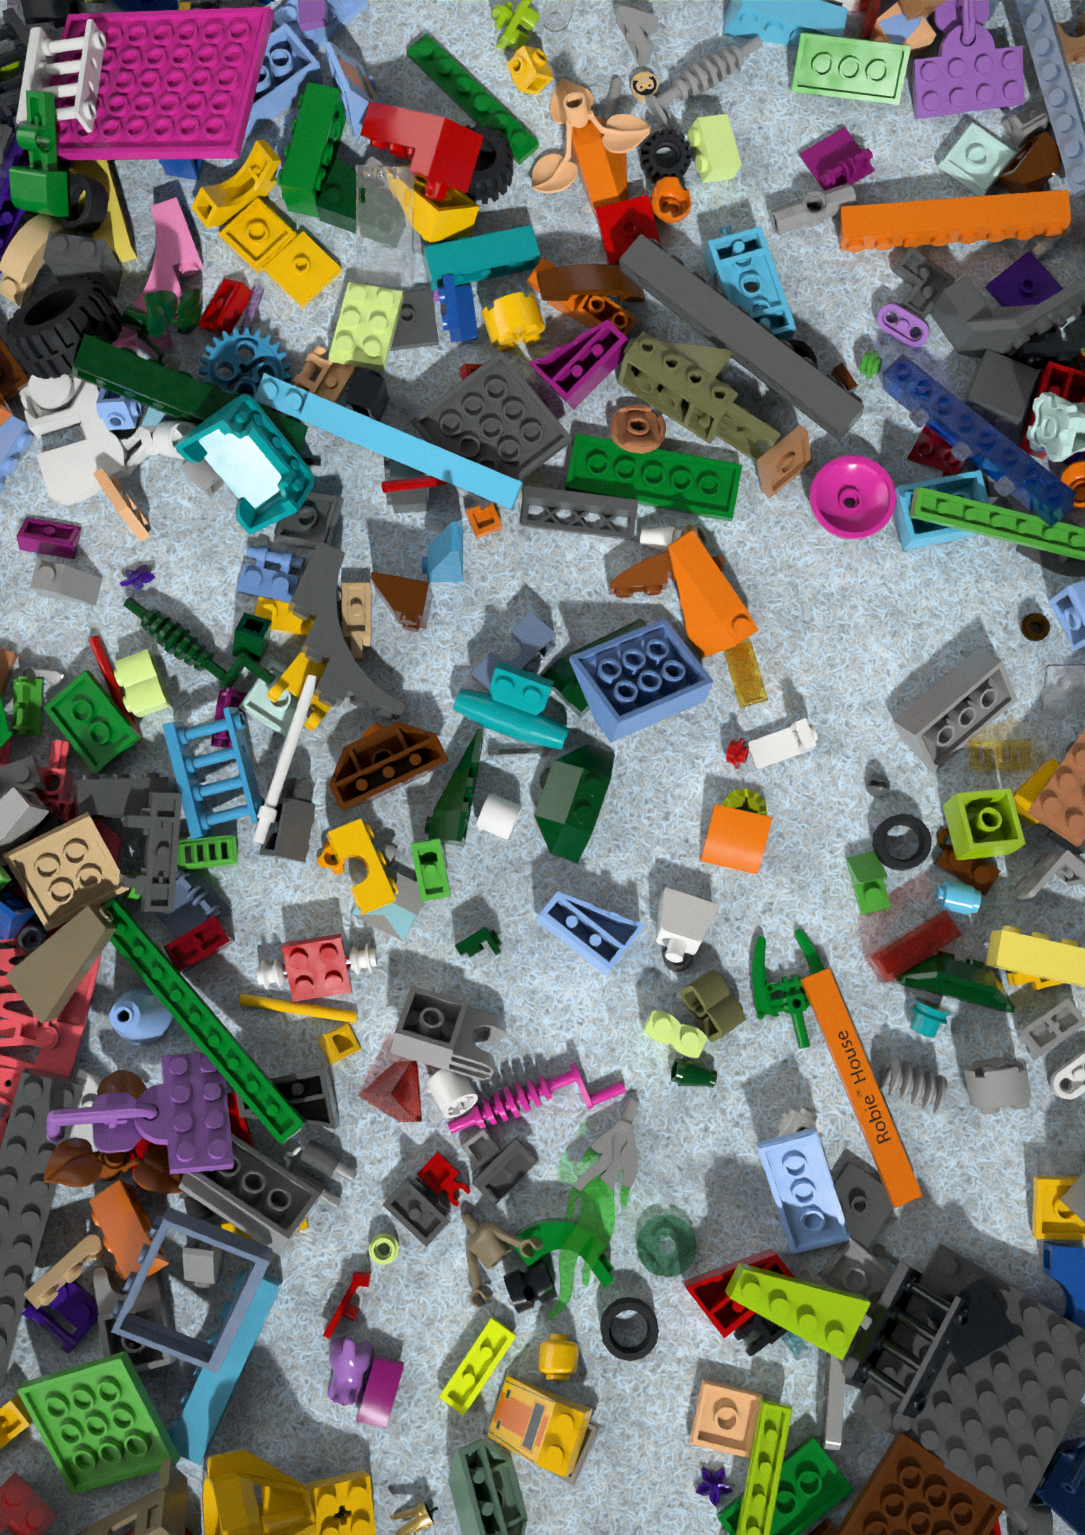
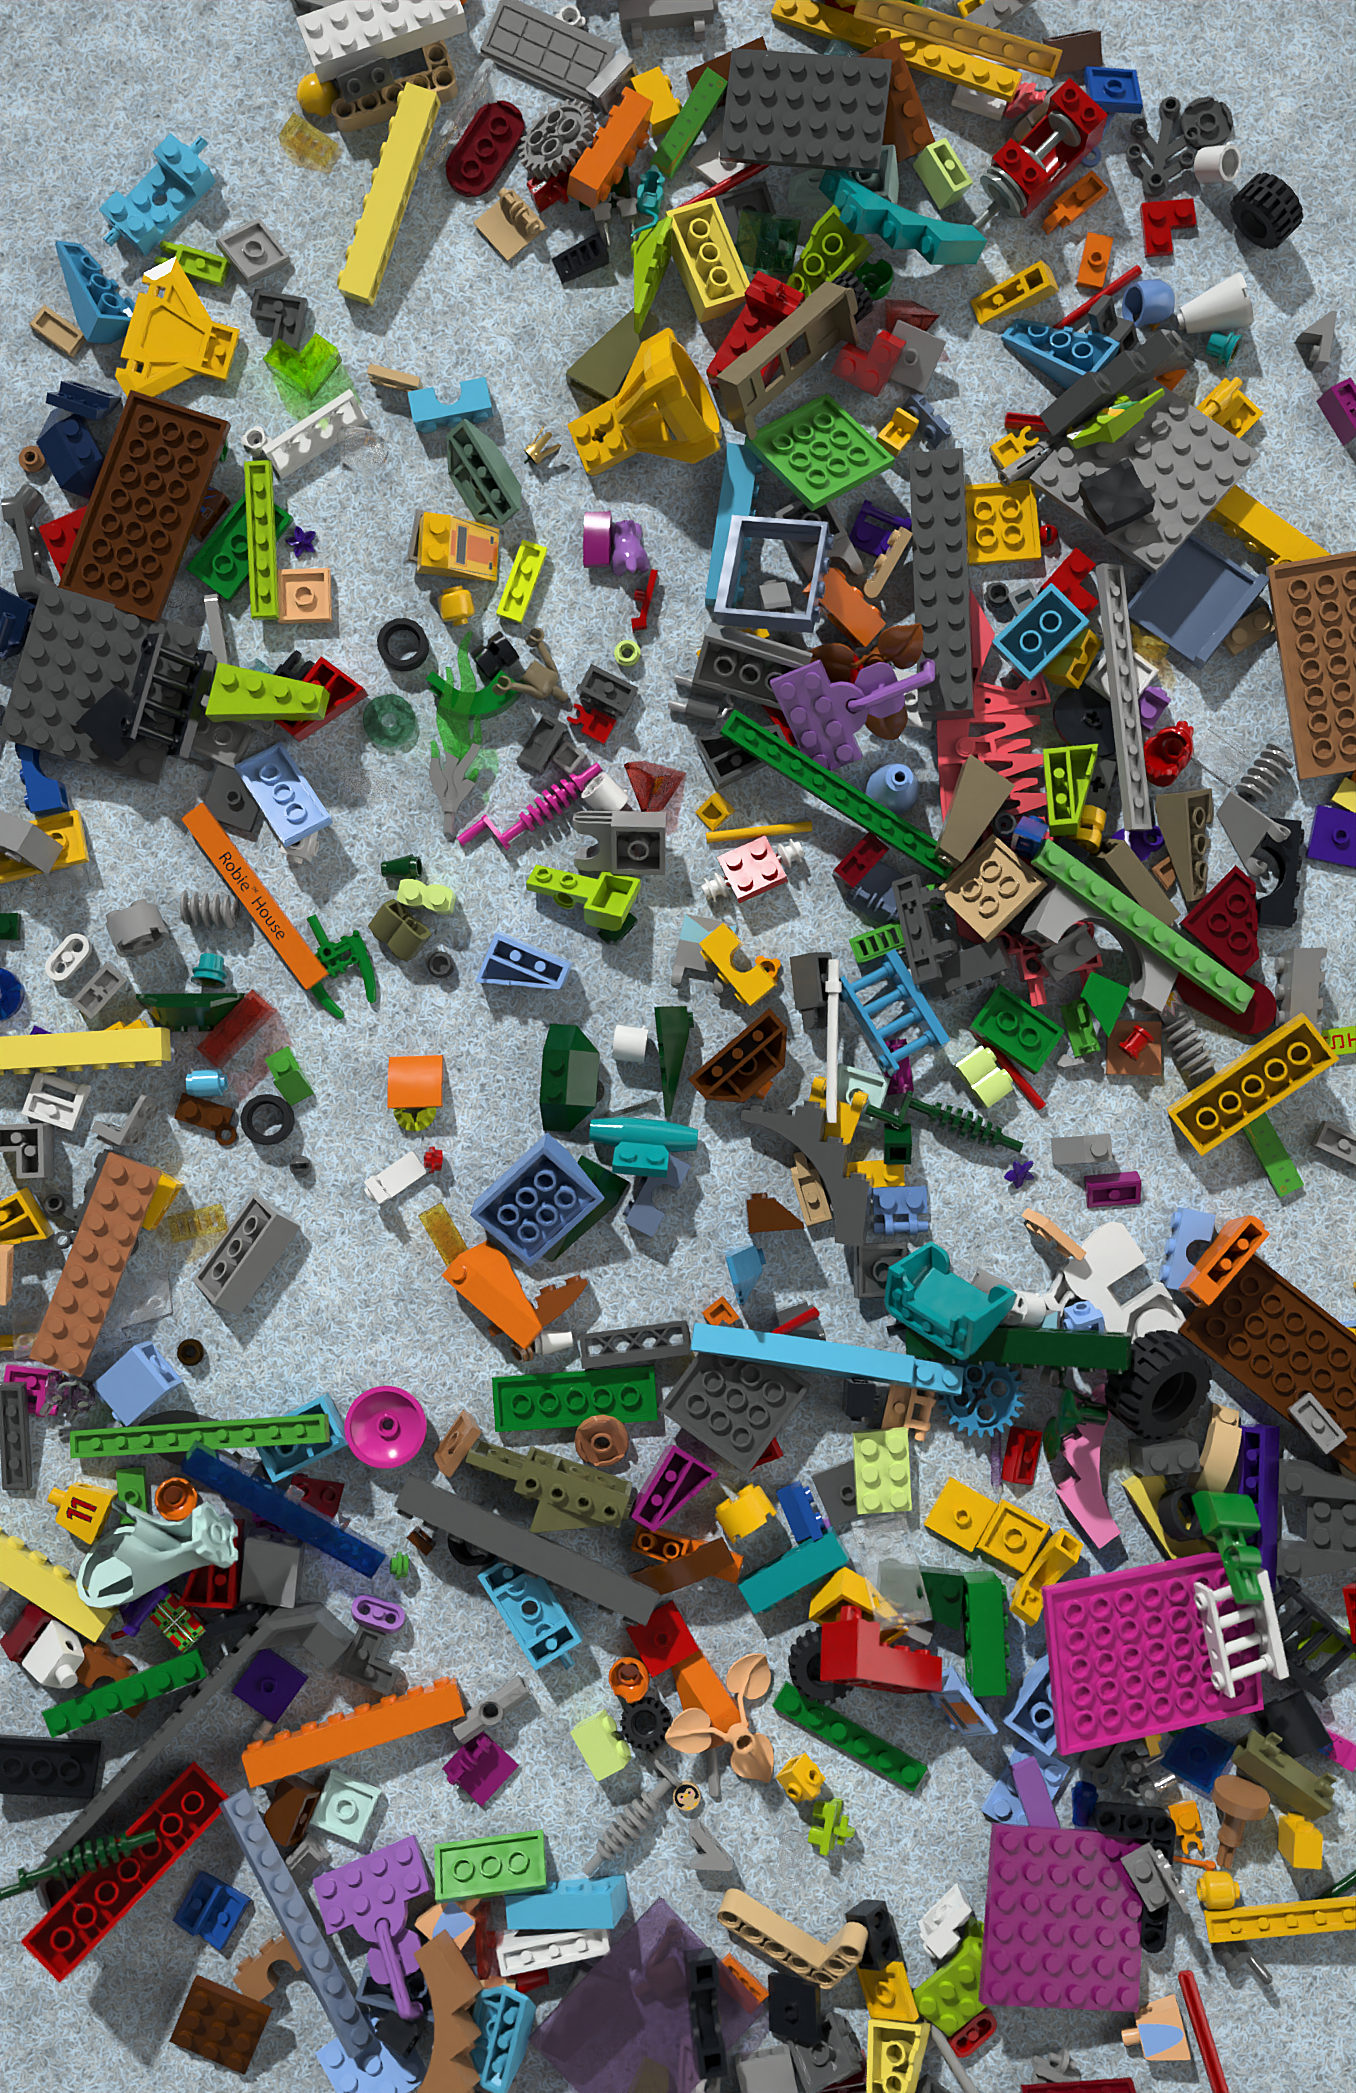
camera: 170 degrees right, 5 degrees up
(430, 869) = (675, 978): bright green slope -> none
(481, 977) = (605, 898): none -> lime plate
(682, 923) = (443, 993): white torso -> none
(983, 824) = (198, 1153): lime brick -> none

